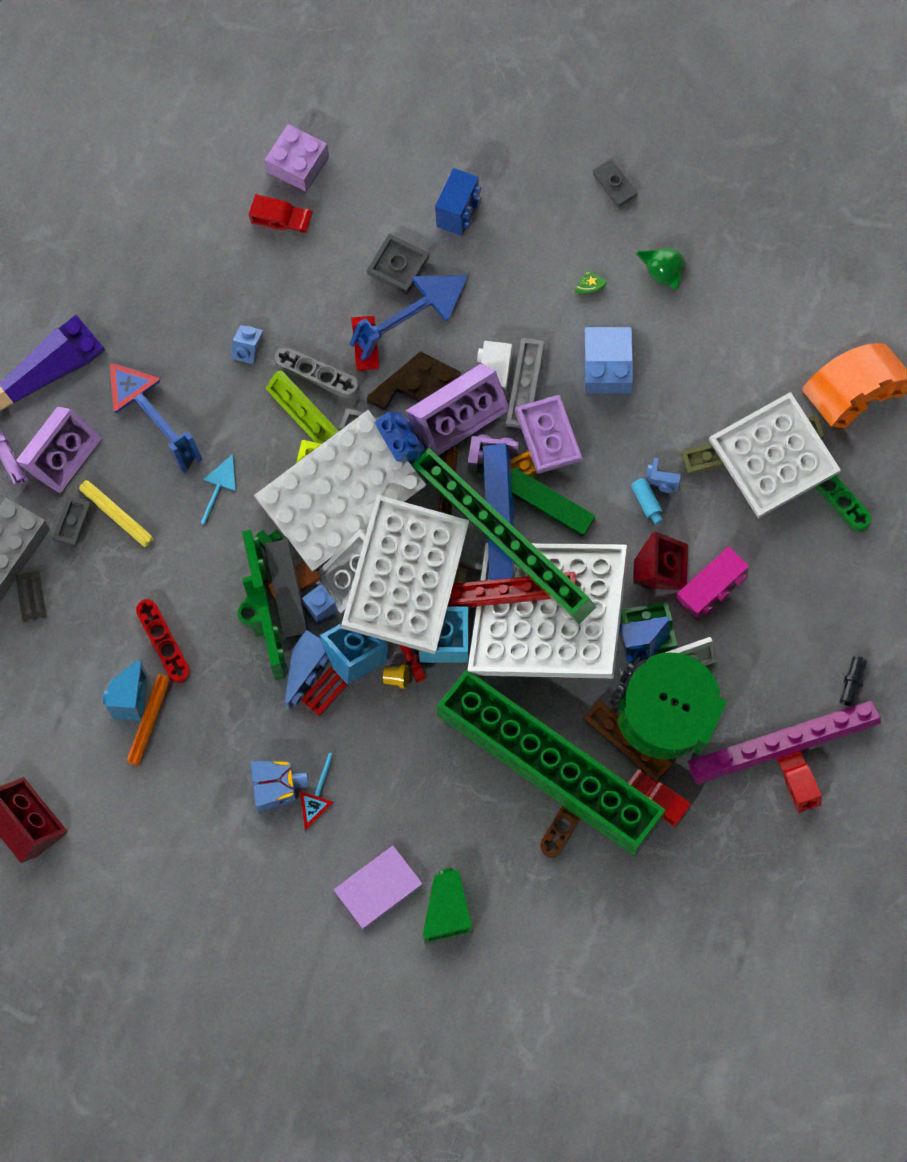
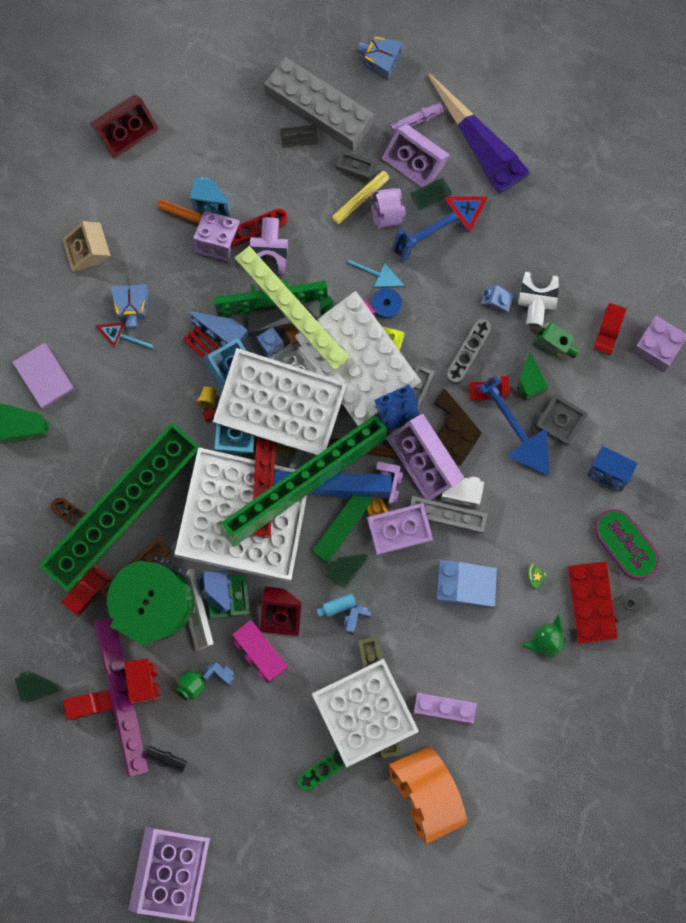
camera: 90 degrees right, 5 degrees up
(109, 428) = (430, 194): none -> clear green plate
(133, 474) = (387, 207): none -> lavender brick
(177, 683) = (215, 236): none -> lavender bracket
(190, 616) = (270, 244): none -> lavender connector
(197, 850) = (86, 246): none -> tan slope
(246, 296) = (537, 300): none -> white connector
(253, 463) = (392, 297): none -> blue piece
(280, 568) = (292, 308): none -> yellowish green plate
(300, 273) = (555, 341): none -> green torso
(300, 408) = (435, 338): lime plate -> none
(349, 299) = (531, 380): none -> green slope
(543, 188) = (626, 544): none -> green tile
(603, 493) = (345, 569): none -> clear green slope
(616, 221) = (592, 602): none -> red plate
(743, 623) = (225, 673): none -> medium blue bracket
(758, 370) = (445, 708): none -> lavender brick
(762, 660) = (190, 685): none -> green head
(765, 712) = (142, 681): none -> red brick
(784, 847) = (33, 686): none -> clear green slope

